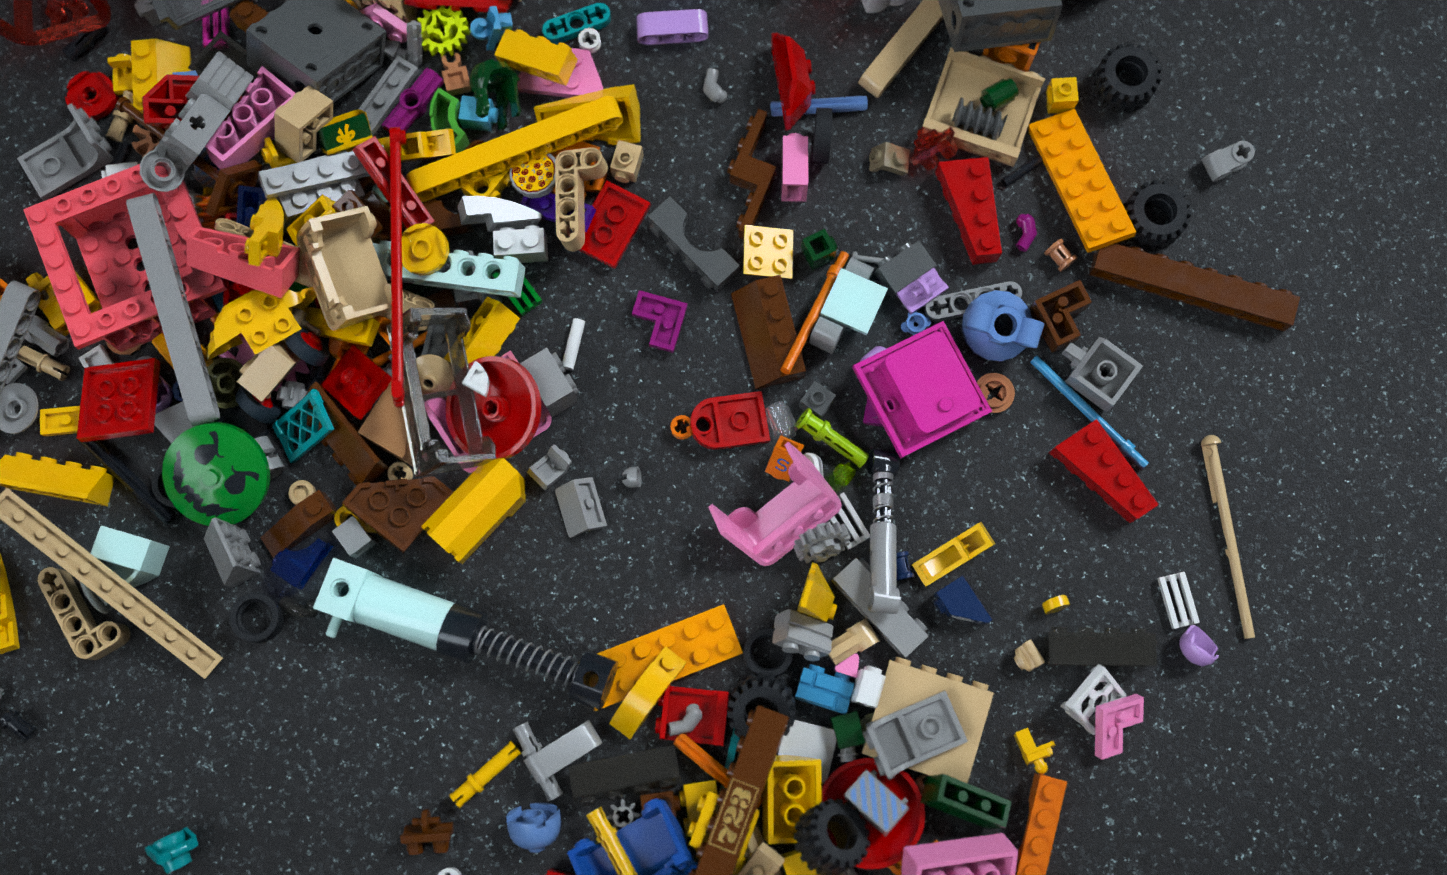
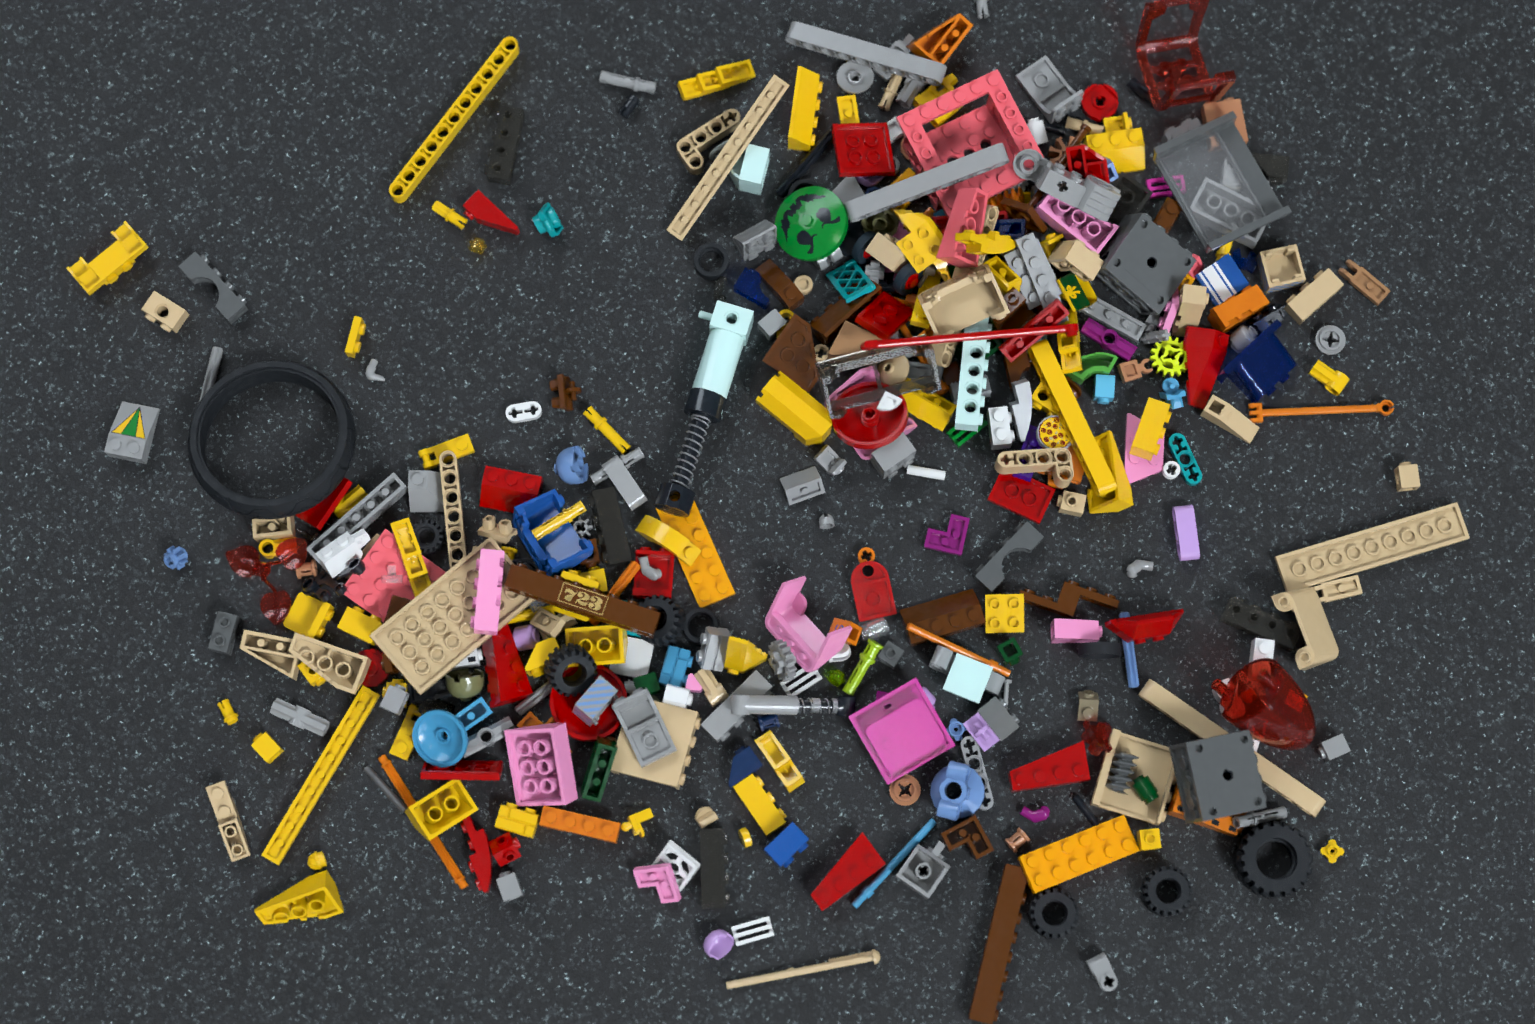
camera: 85 degrees right, 0 degrees up
(424, 249) = (984, 356): yellow tile -> none
(496, 78) = (1130, 405): dark green piece -> none
(1013, 581) = (760, 804): none -> yellow brick
(1073, 547) = (786, 845): none -> blue brick

